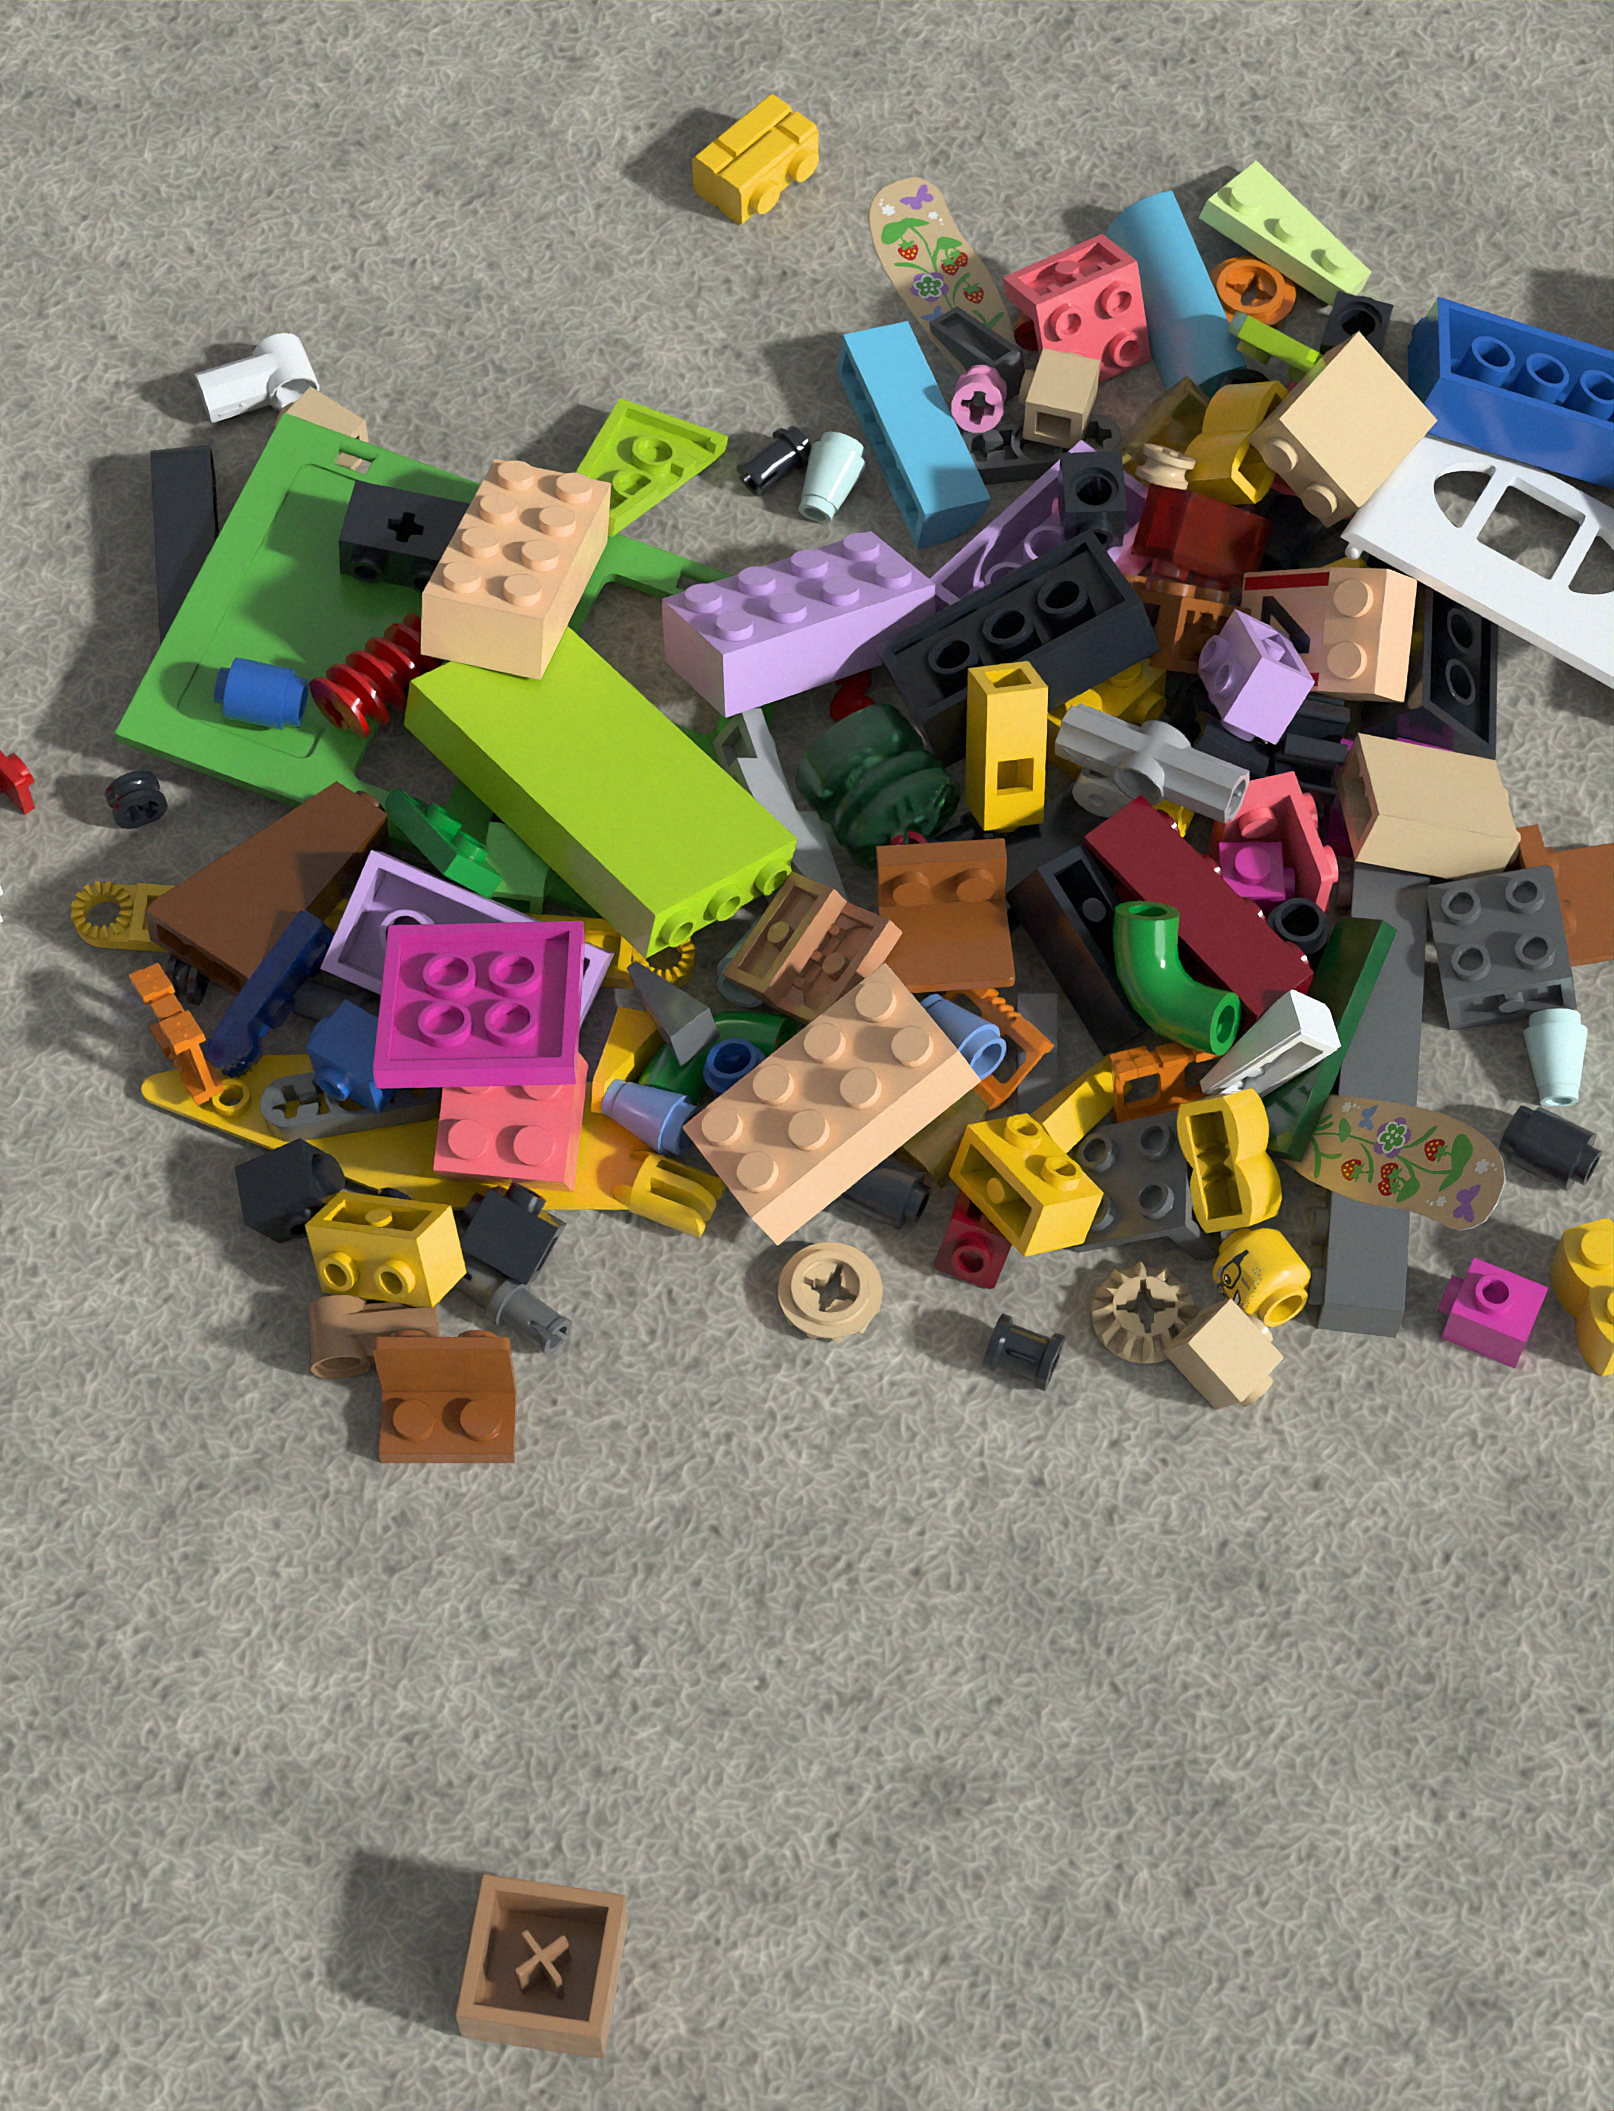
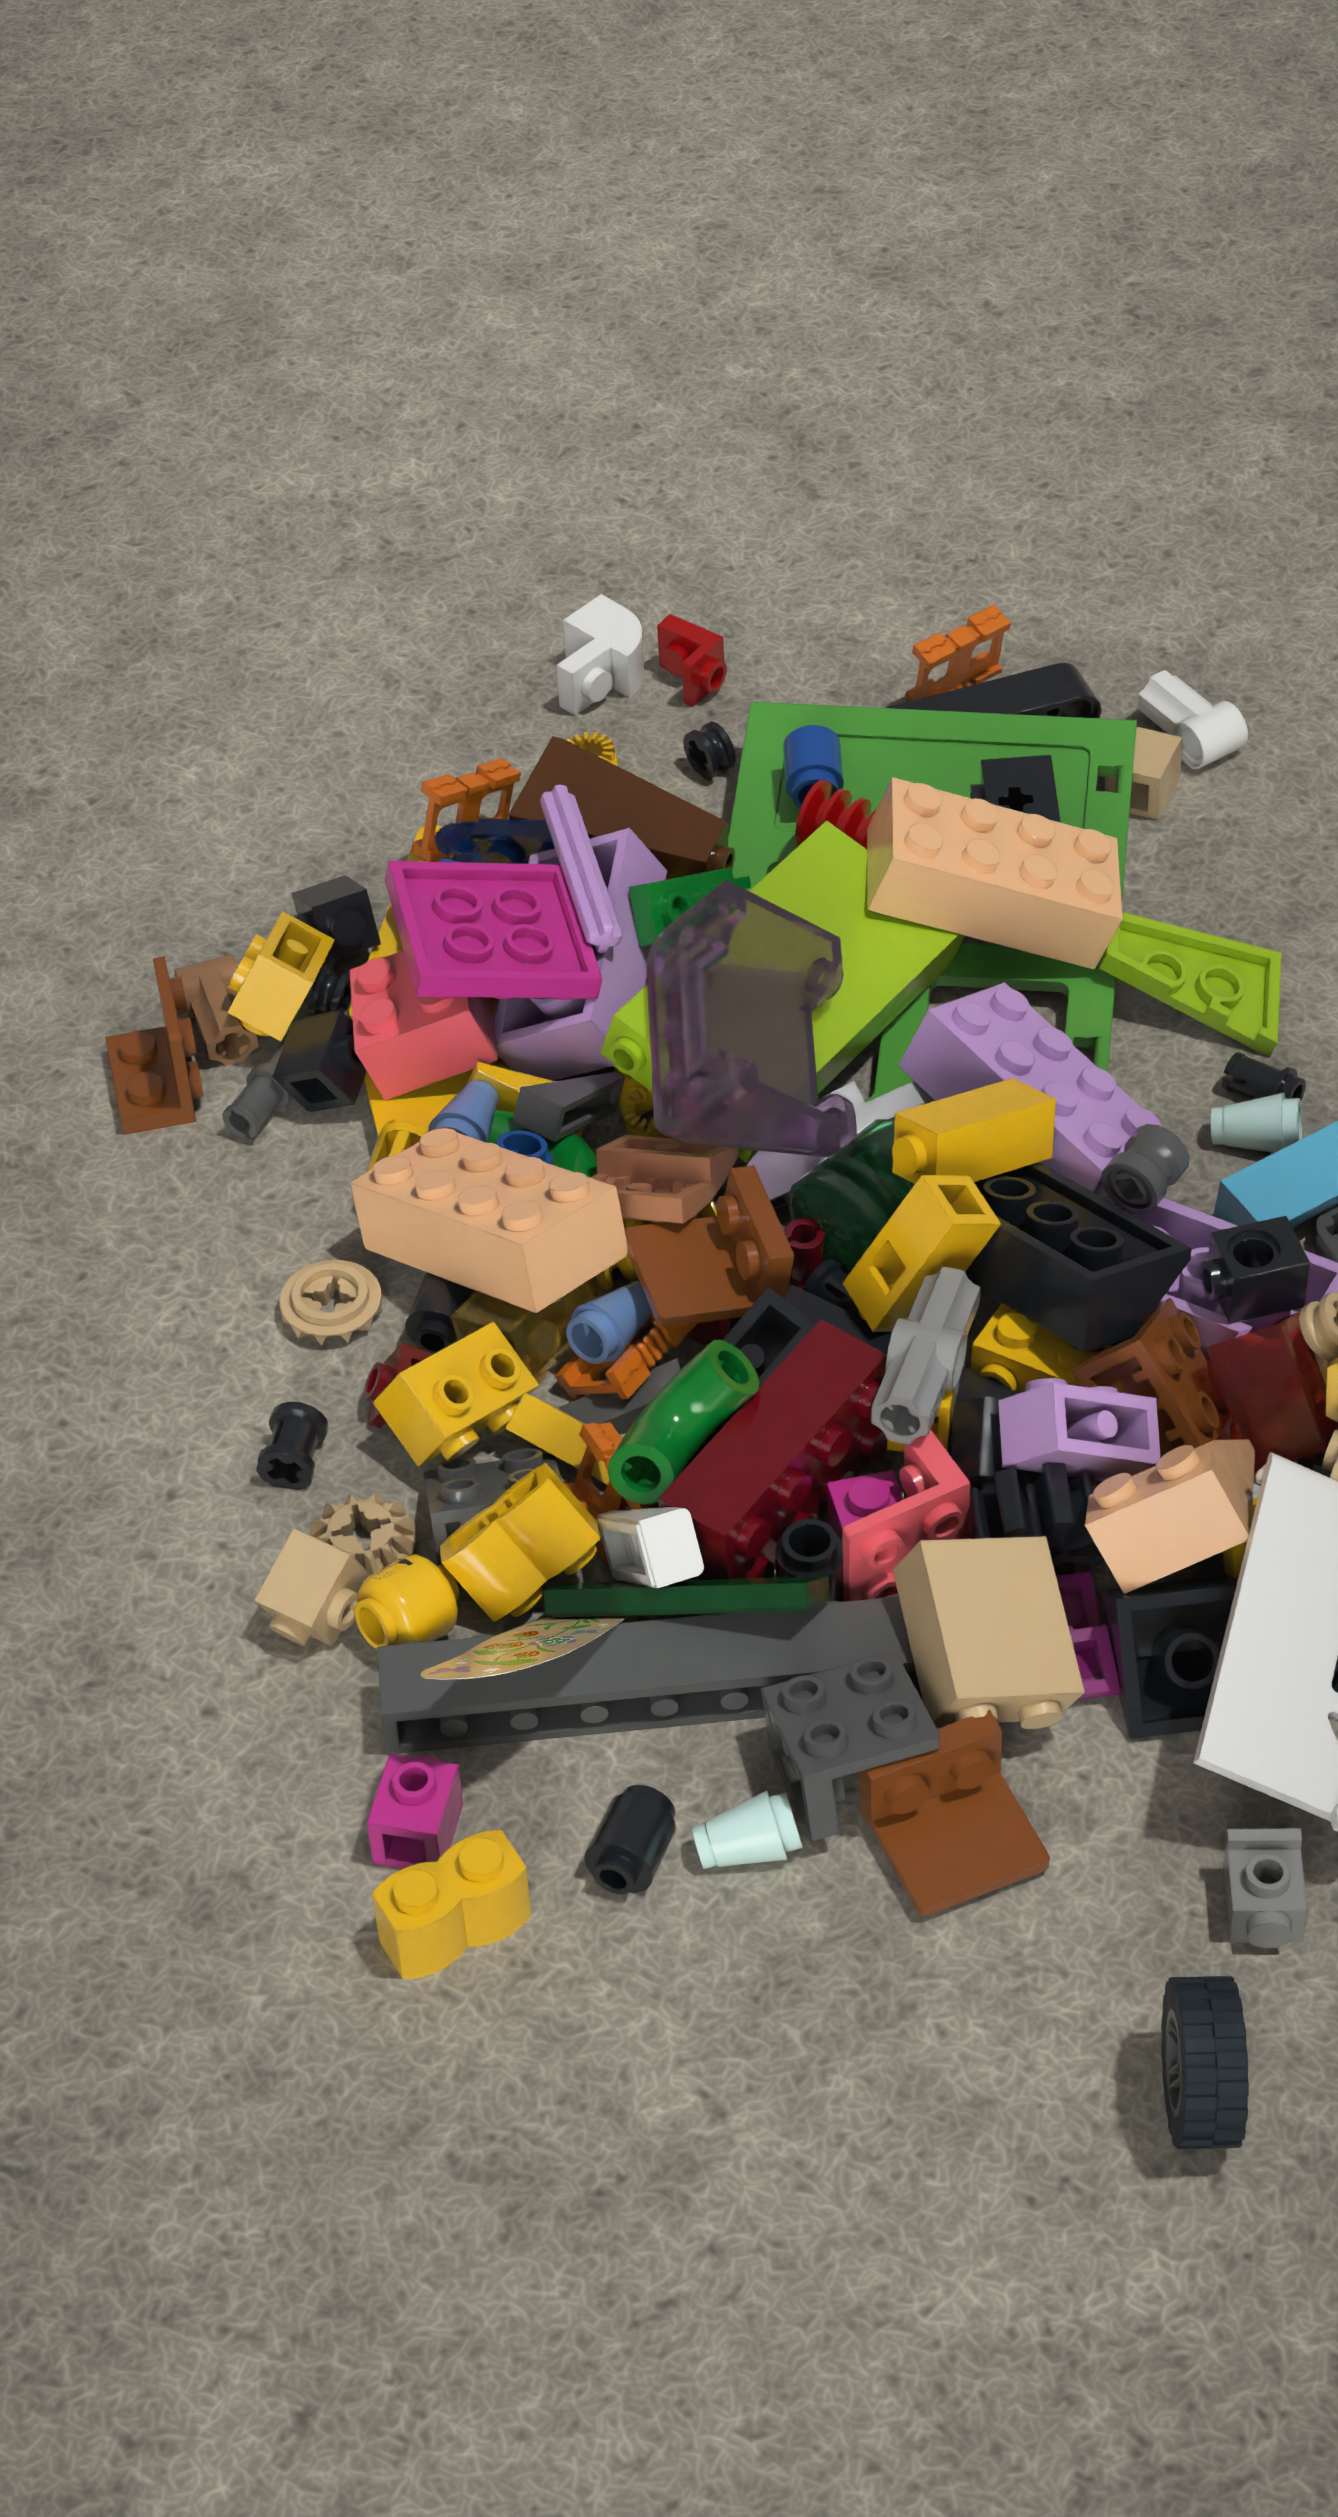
camera: 80 degrees right, 15 degrees down
(98, 546) = (958, 649): none -> orange piece
(403, 910) = (581, 869): none -> lavender axle
(719, 827) = (736, 1028): none -> windscreen
(892, 661) = (975, 1133): none -> yellow brick
(944, 550) = (1144, 1170): none -> dark grey wheel

